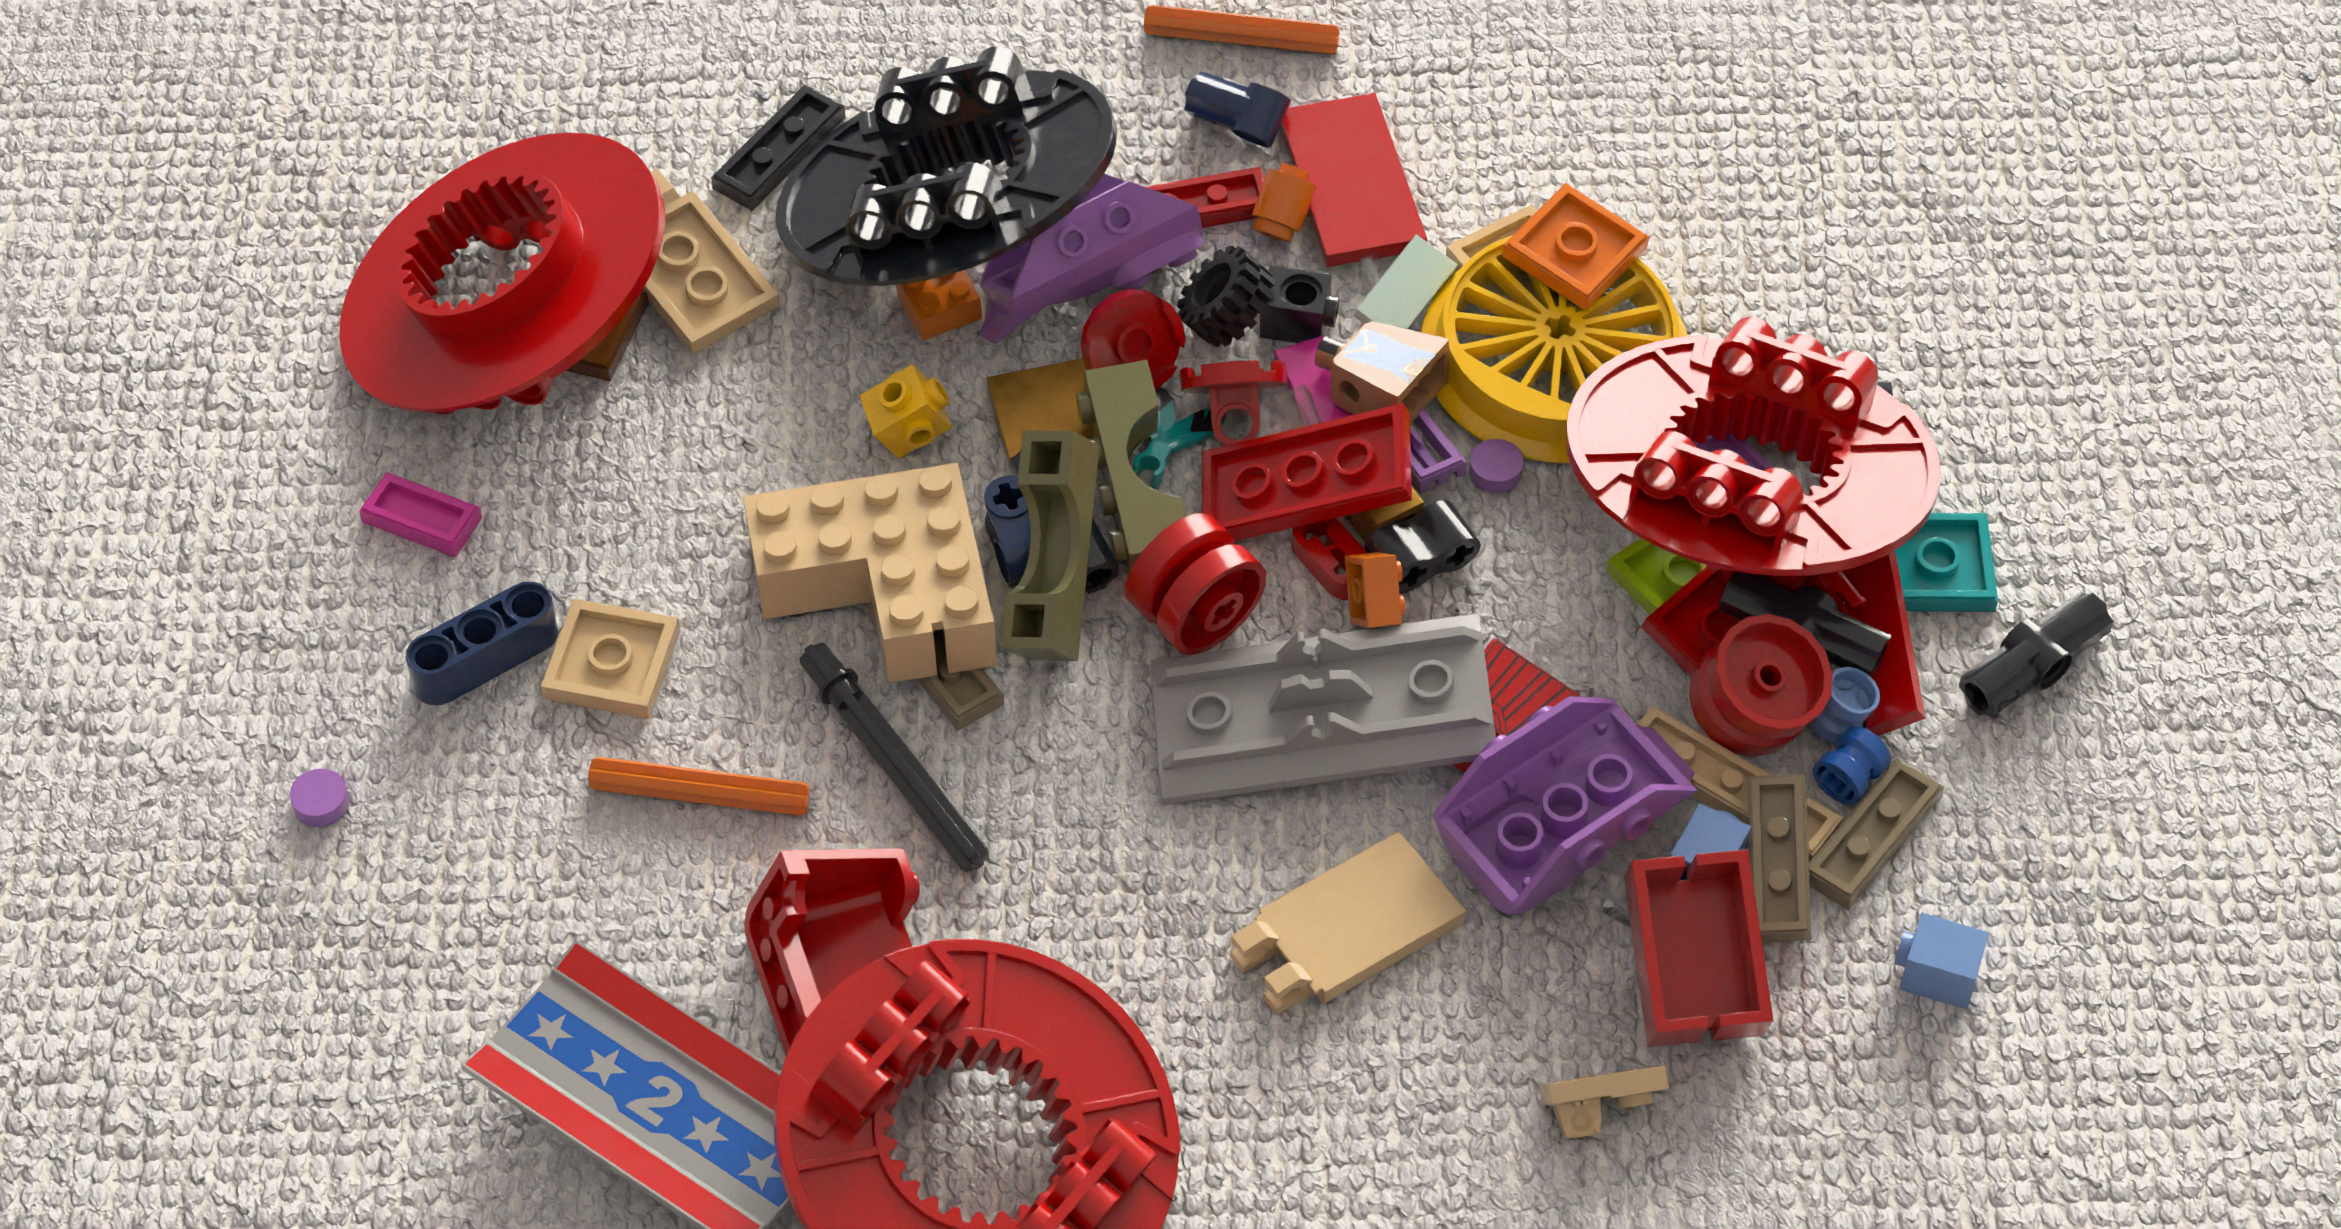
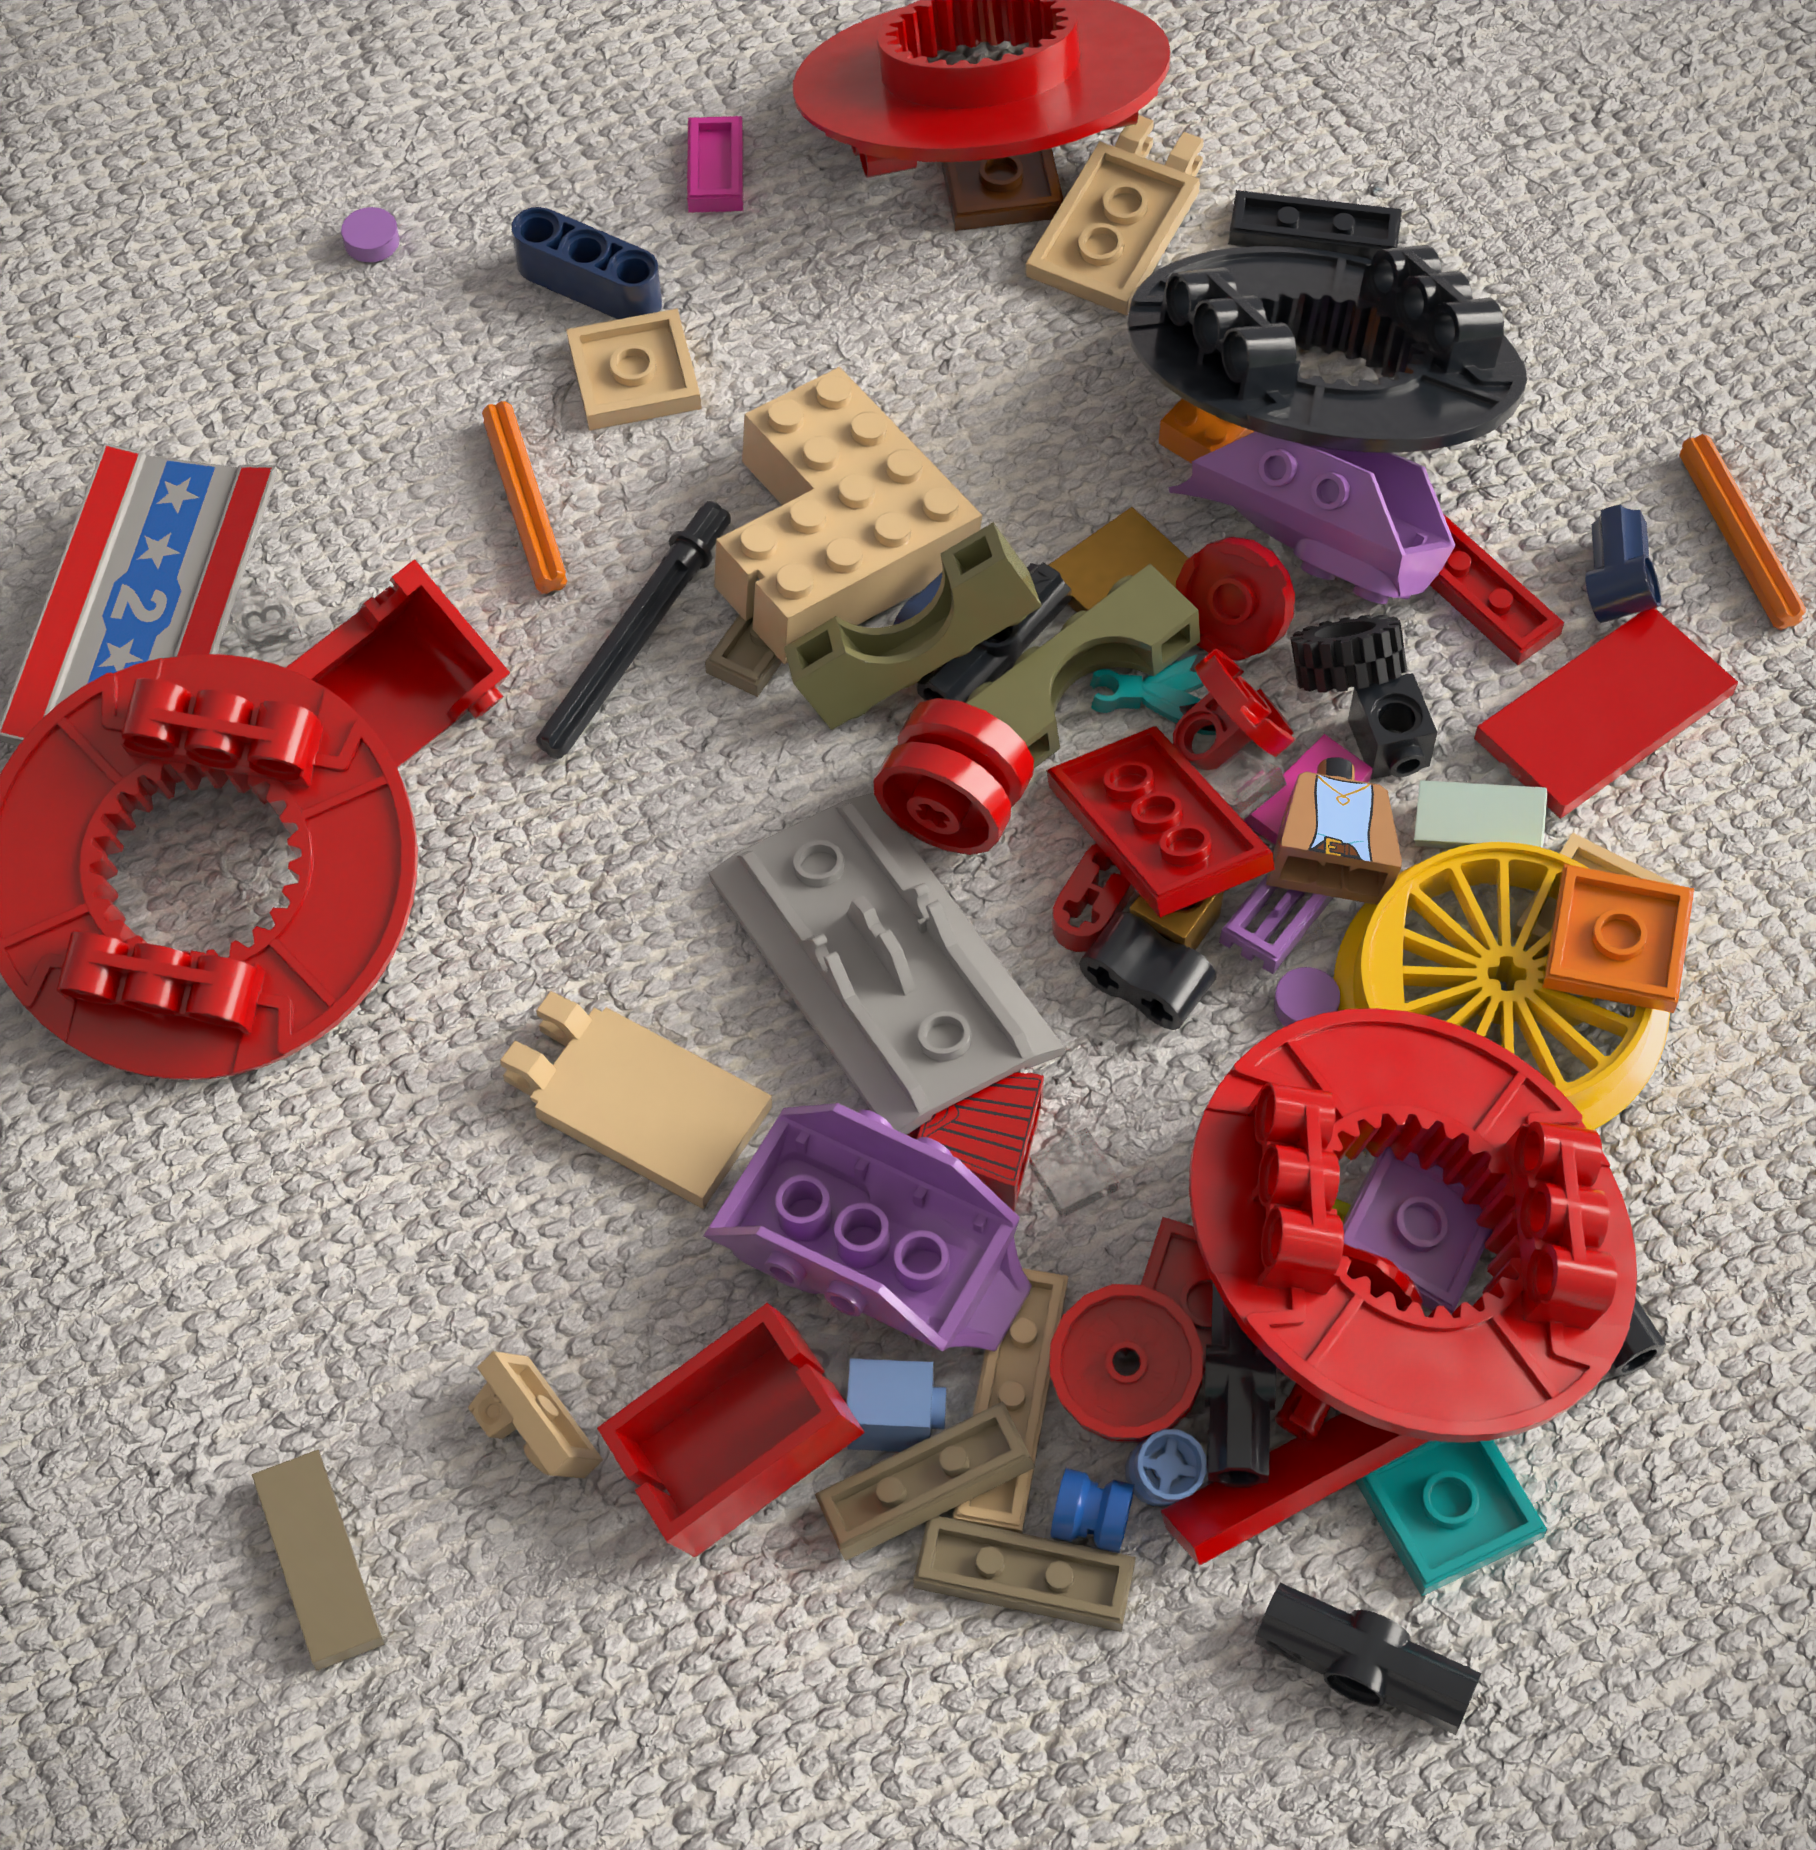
camera: 65 degrees right, 5 degrees up
(907, 410) = (1037, 455): yellow brick -> none
(1283, 202) = (1515, 655): orange brick -> none
(1374, 589) = (1046, 940): orange piece -> none
(1941, 960) = (873, 1706): medium blue brick -> none

